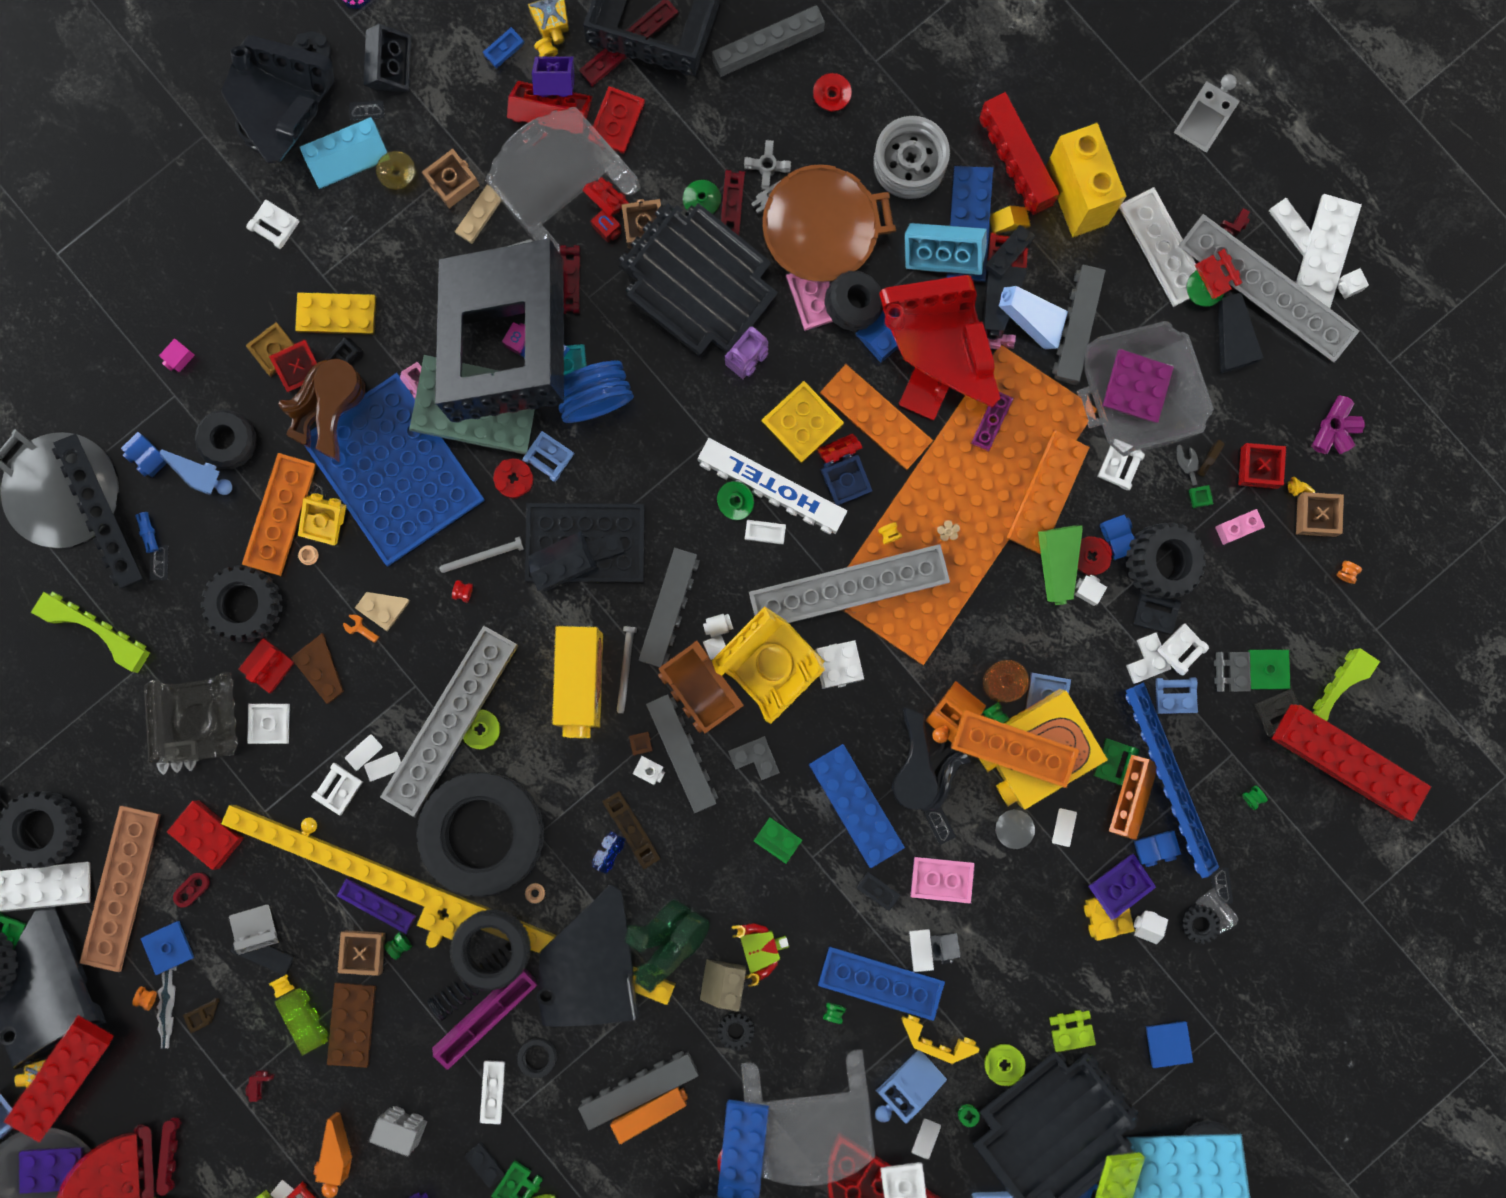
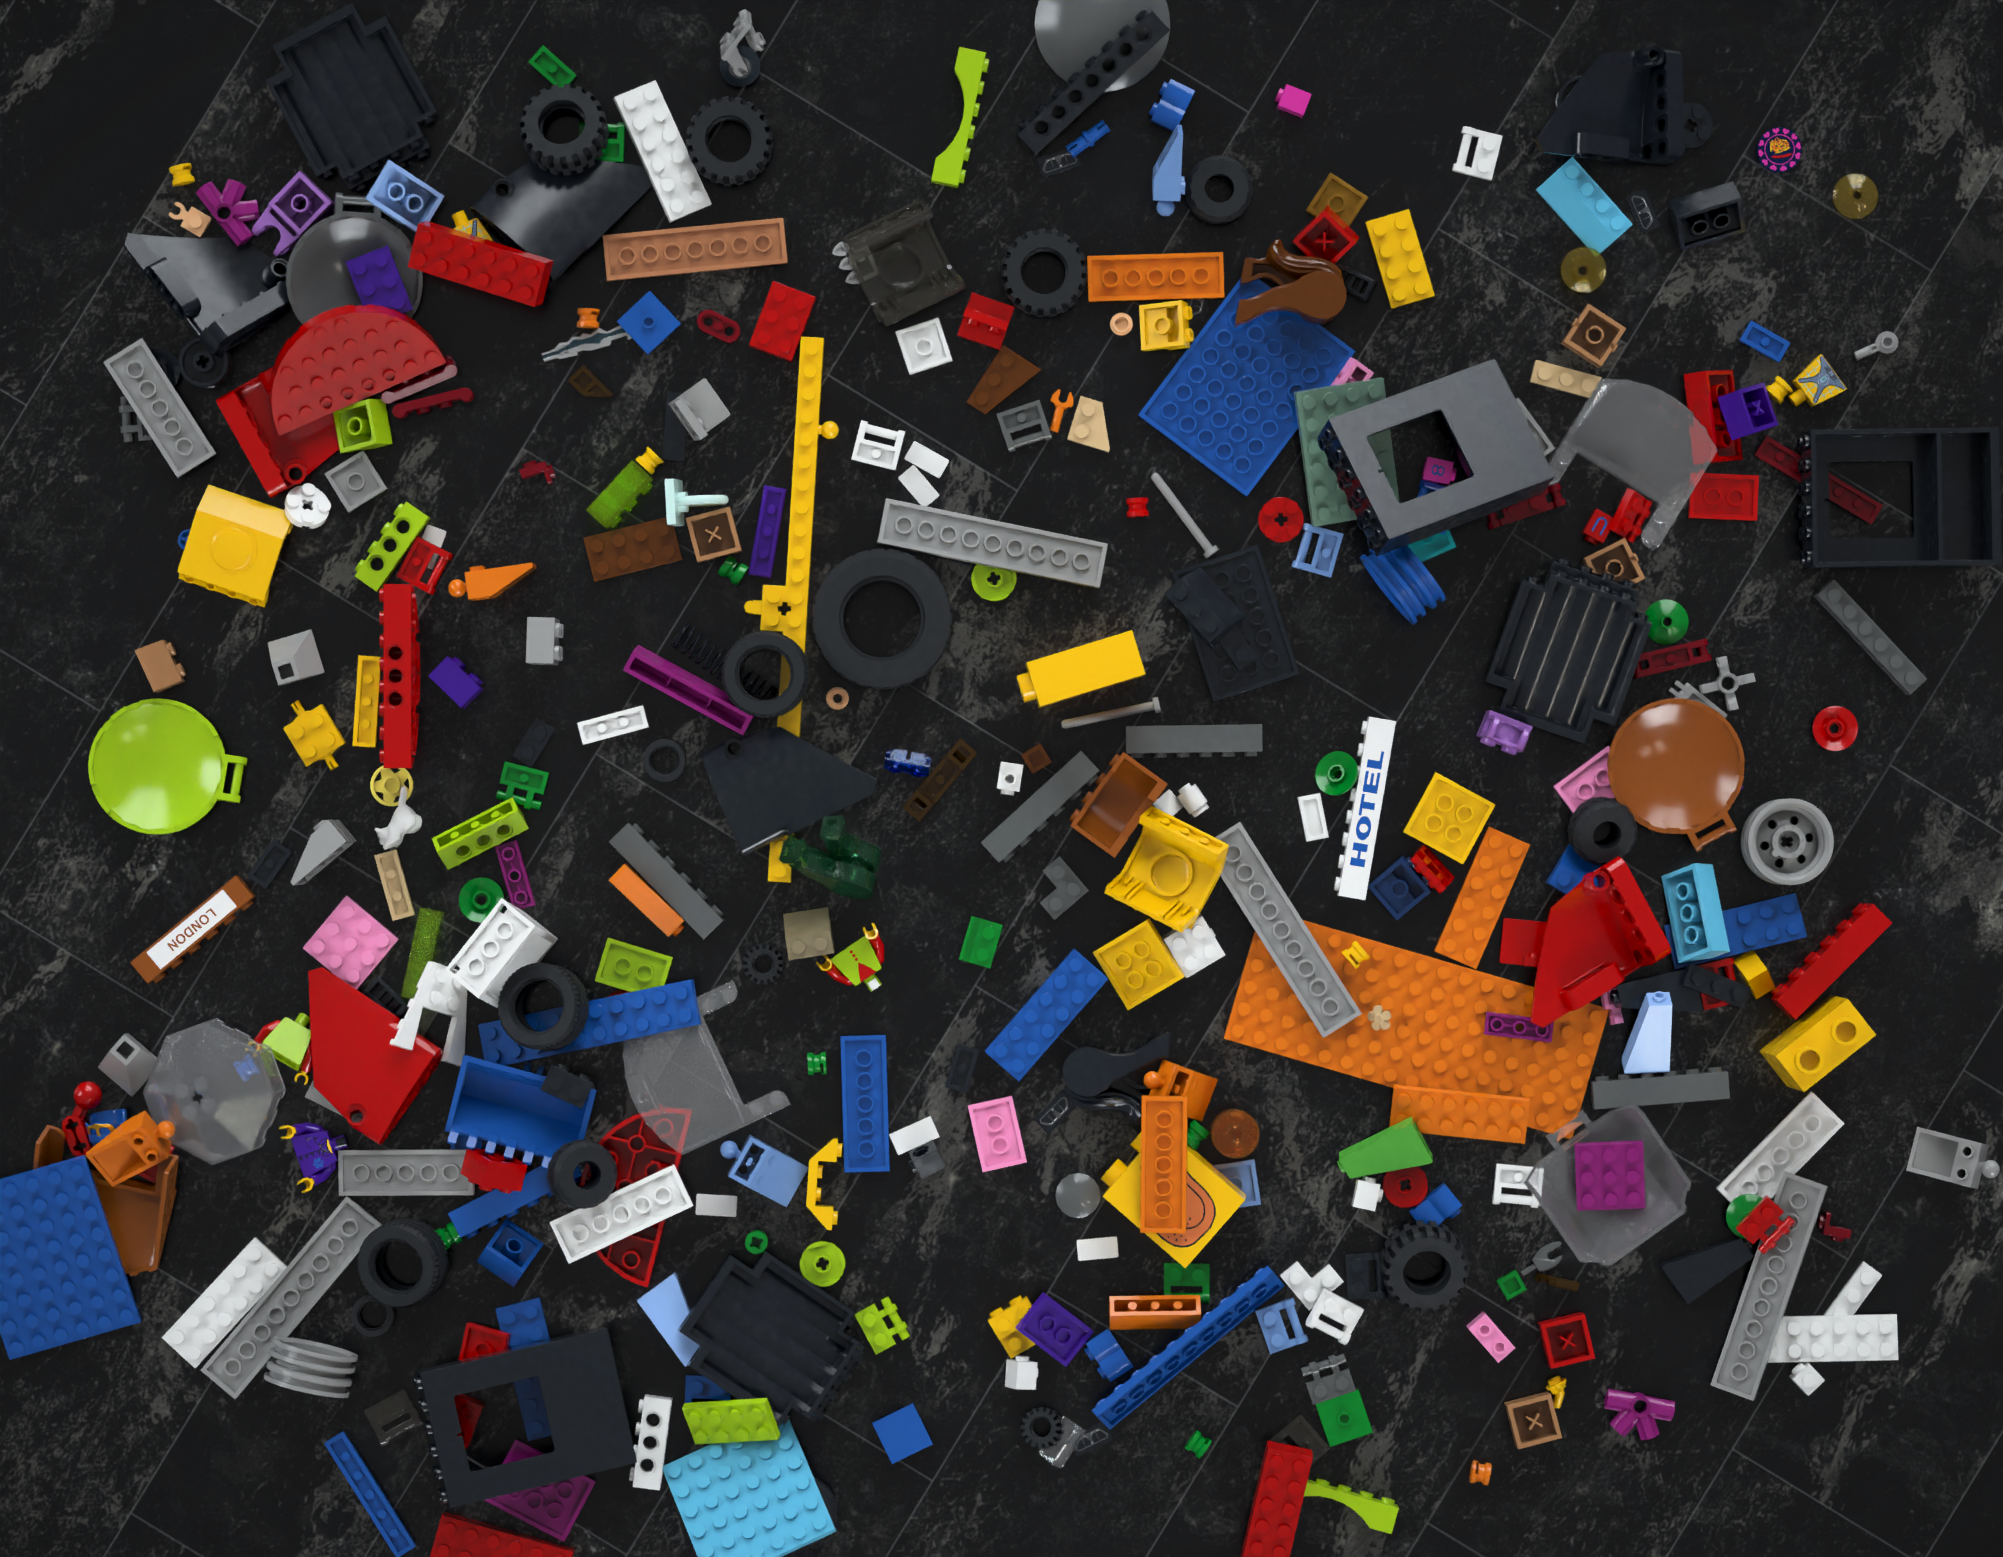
camera: 75 degrees right, 5 degrees up
(323, 973) = (679, 502): none -> light aqua tile
(356, 662) = (1022, 418): none -> dark grey plate
(701, 1144) = (632, 967): none -> lime plate
(839, 714) = (1138, 964): none -> yellow plate

